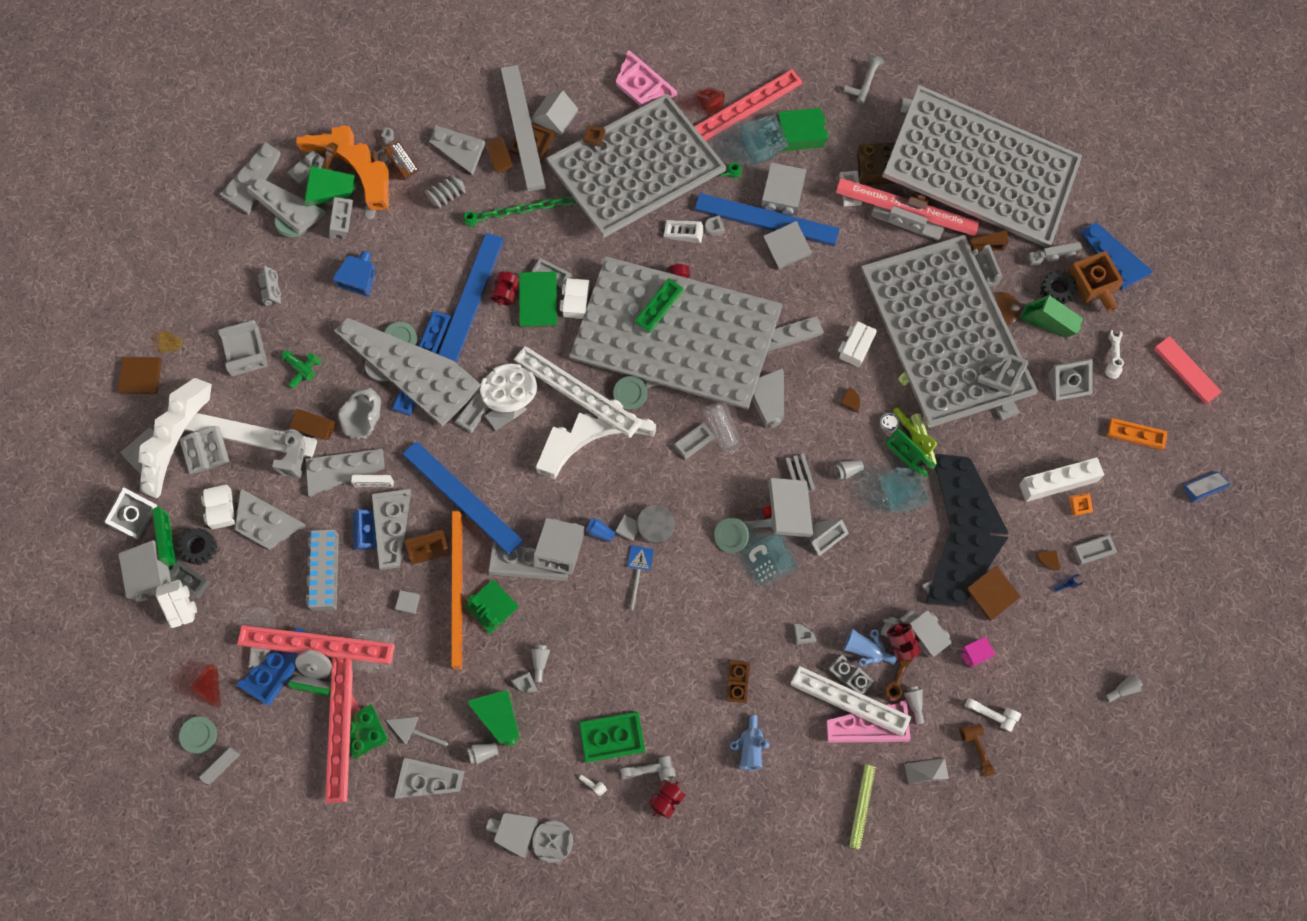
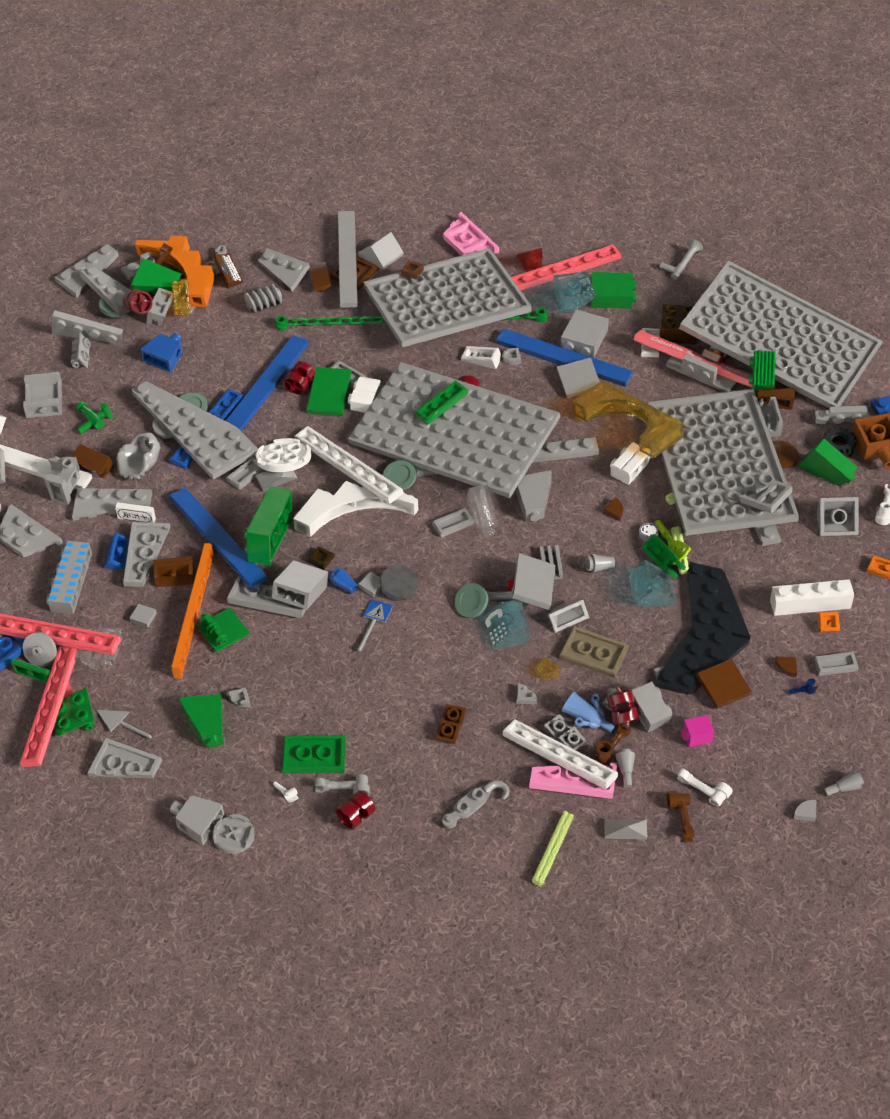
camera: 10 degrees right, 20 degrees down
(269, 259) = (70, 326): none -> light grey wing
(316, 220) = (137, 301): none -> dark red wheel
(359, 205) = (180, 300): none -> clear yellow hinge
(481, 752) = (181, 747): light grey cone -> none
(514, 483) = (268, 525): none -> green brick
(539, 656) = (259, 675): light grey cone -> none
(571, 504) = (321, 557): none -> dark brown tile
(752, 743) = (451, 780): medium blue piece -> none
(776, 767) = (472, 802): none -> light grey piece
(819, 601) = (547, 669): none -> clear yellow tile
(821, 269) = (607, 399): none -> clear yellow arch
(861, 573) = (594, 652): none -> dark tan tile
(974, 217) = (763, 370): none -> green brick
(1093, 723) = (806, 811): none -> light grey tile

